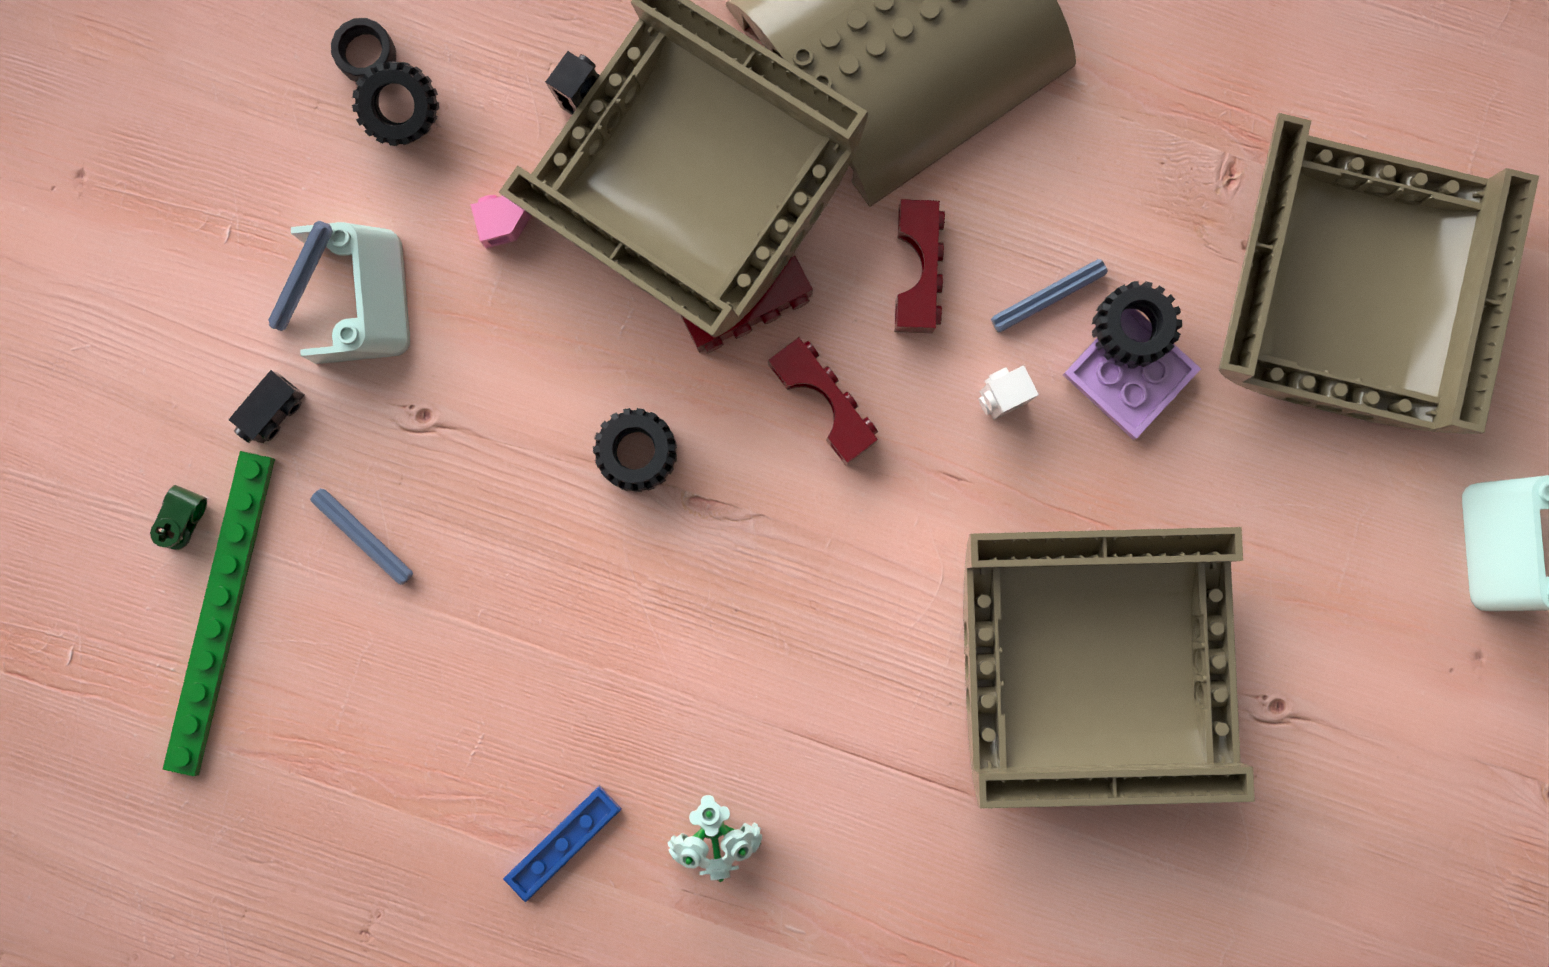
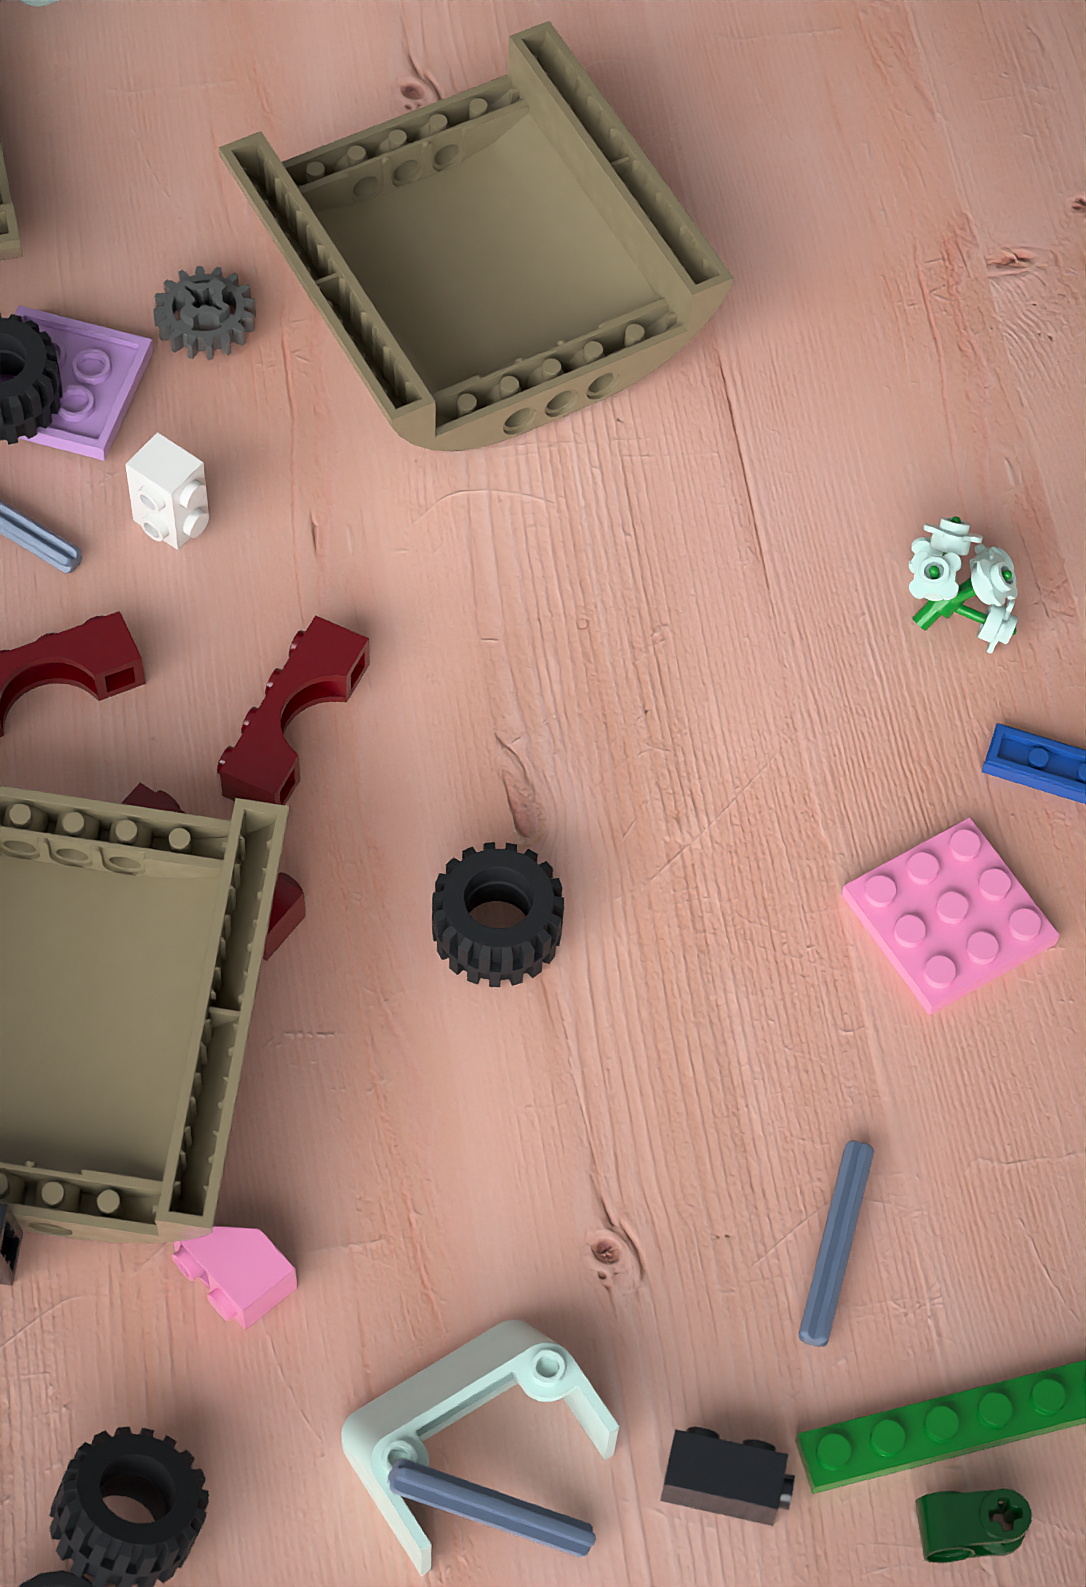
camera: 120 degrees left, 25 degrees down
(516, 710) = (949, 915): none -> bright pink plate
(1150, 492) = (204, 312): none -> dark grey gear

